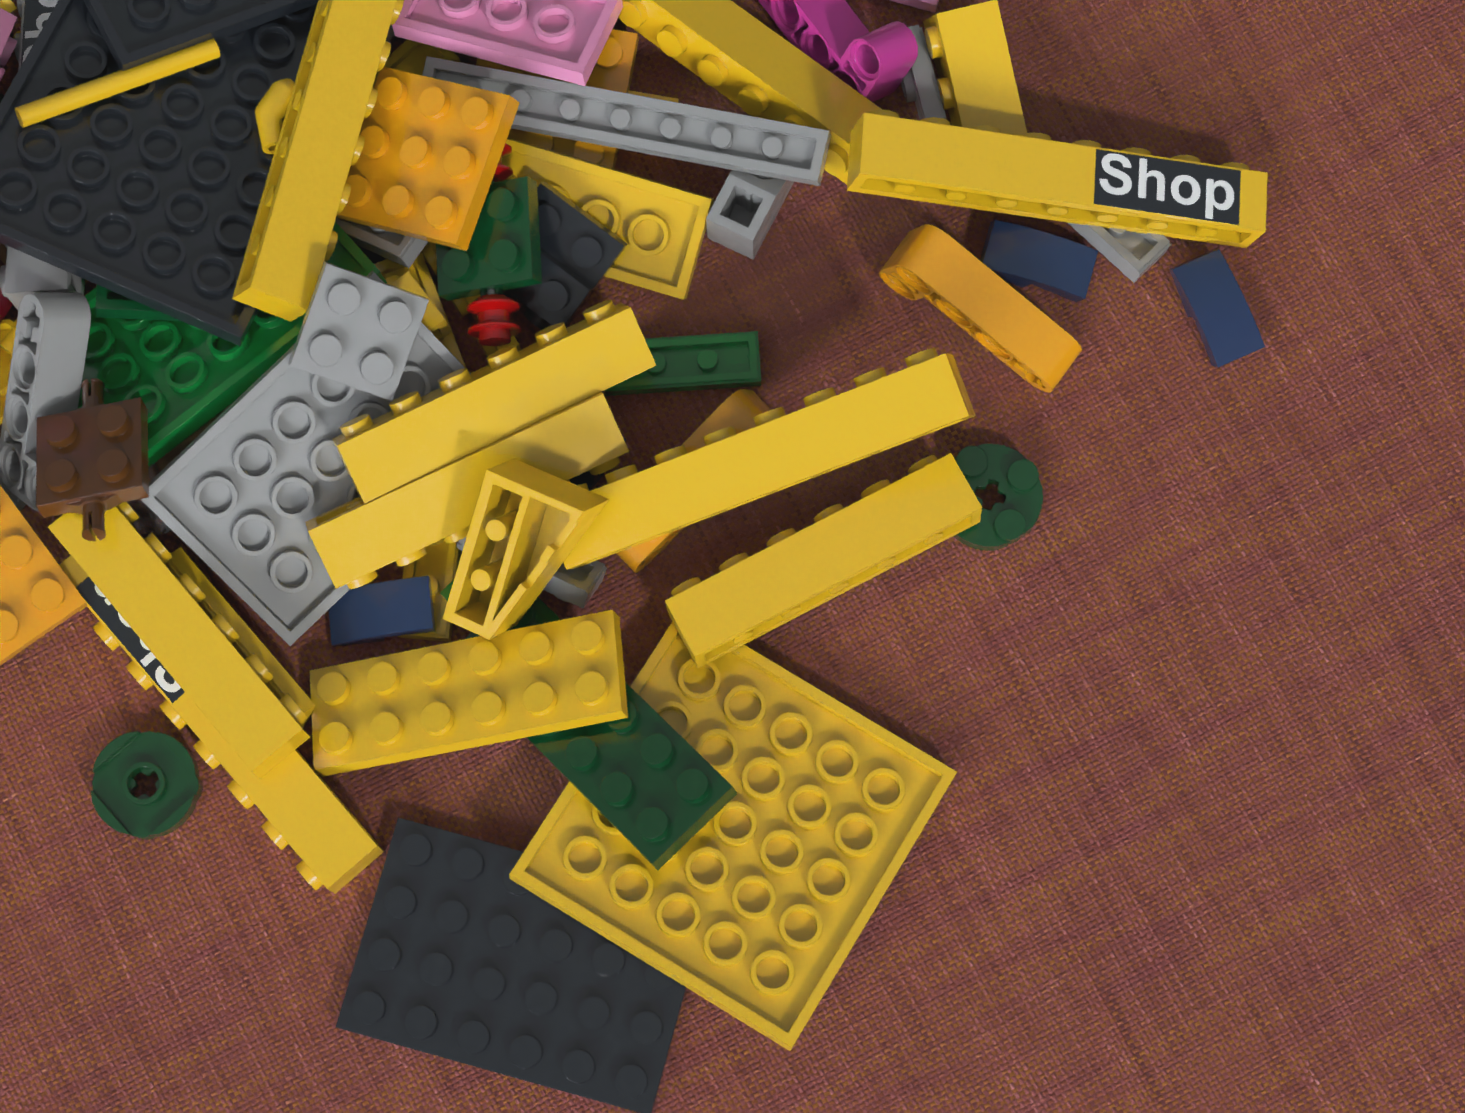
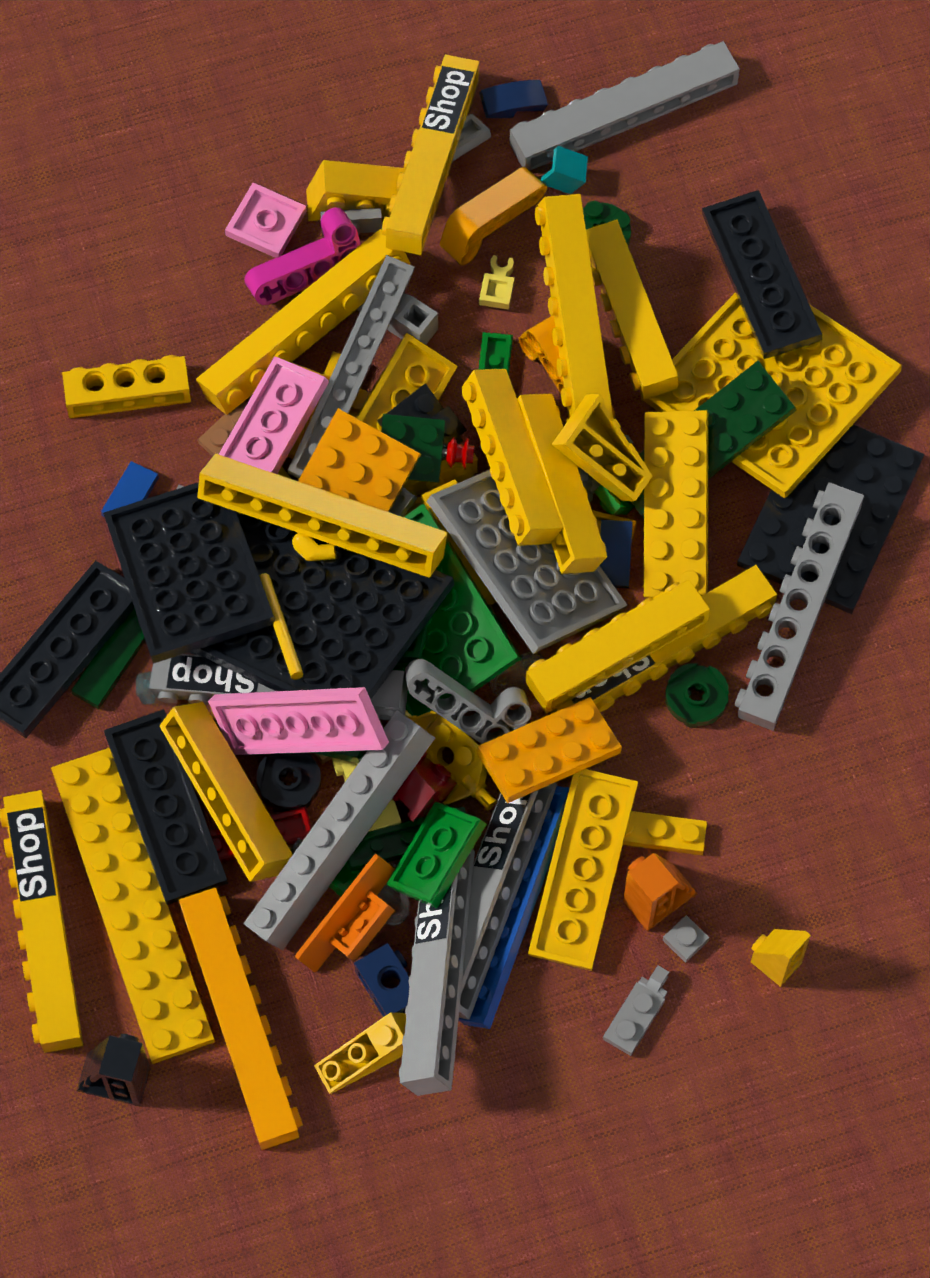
camera: 85 degrees left, 10 degrees down
(92, 458) = (509, 670): reddish brown plate -> none
(126, 901) = (846, 507): none -> light grey brick
(358, 331) = (464, 510): light grey plate -> none
(842, 341) = (497, 287): none -> light yellow plate
(936, 778) = (761, 274): none -> black plate
(1039, 259) = (468, 180): dark blue slope -> none
(1085, 414) = (567, 170): none -> teal panel
(1241, 497) = (625, 105): none -> light grey brick

